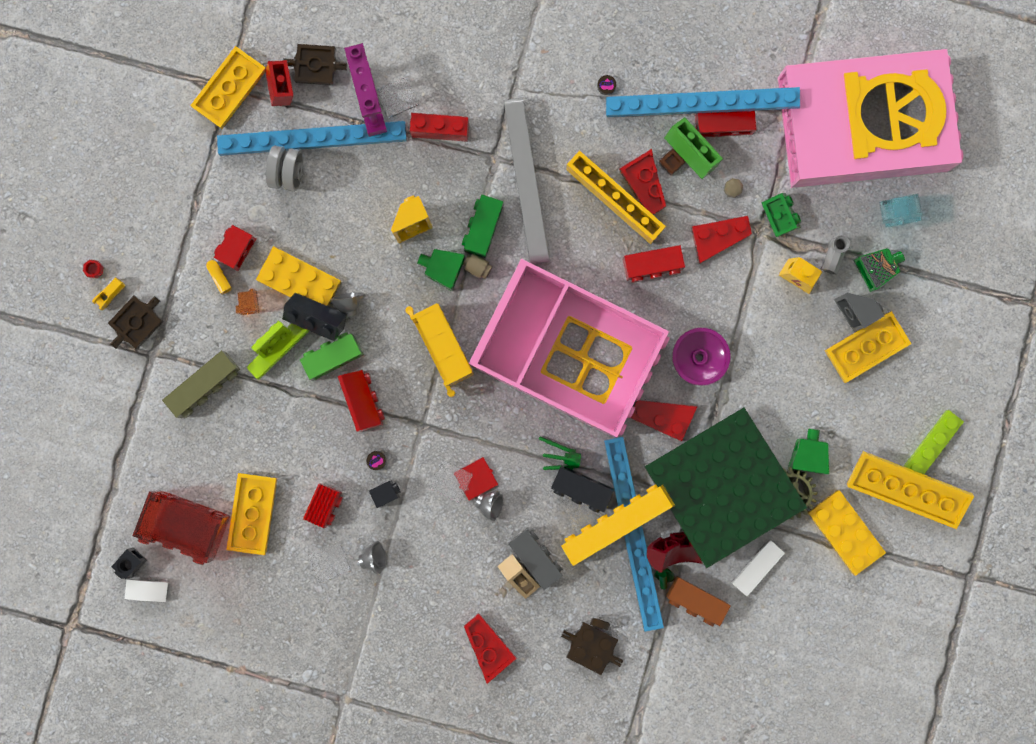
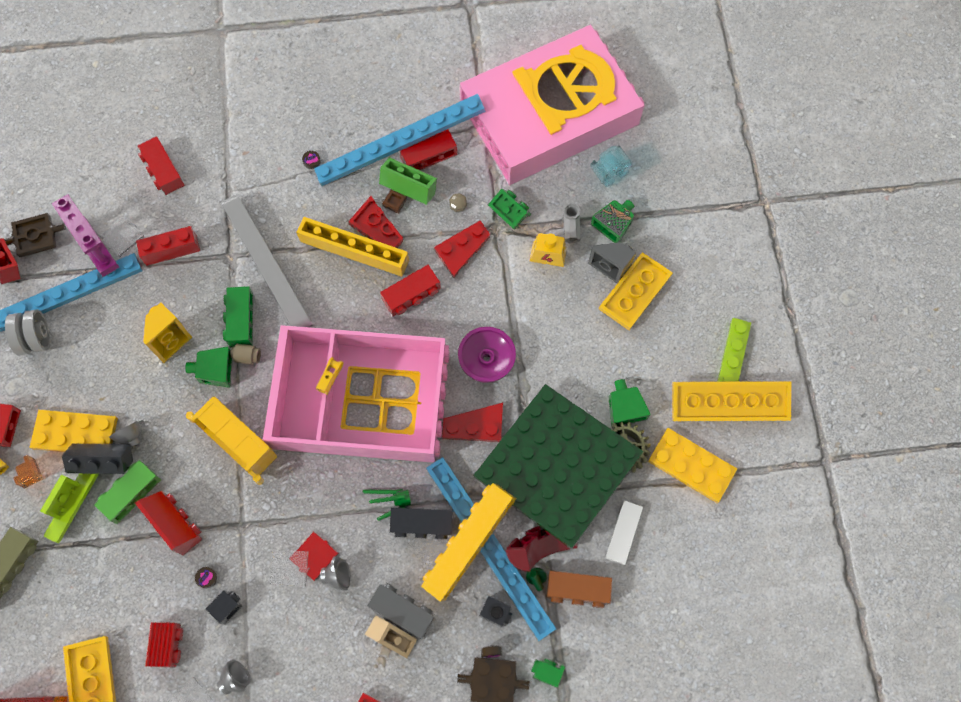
camera: 25 degrees left, 15 degrees down
(457, 36) = (160, 166): none -> red brick
(547, 329) = (328, 378): none -> yellow bar
(610, 586) = (489, 605): none -> black brick
(641, 660) = (547, 672): none -> green brick

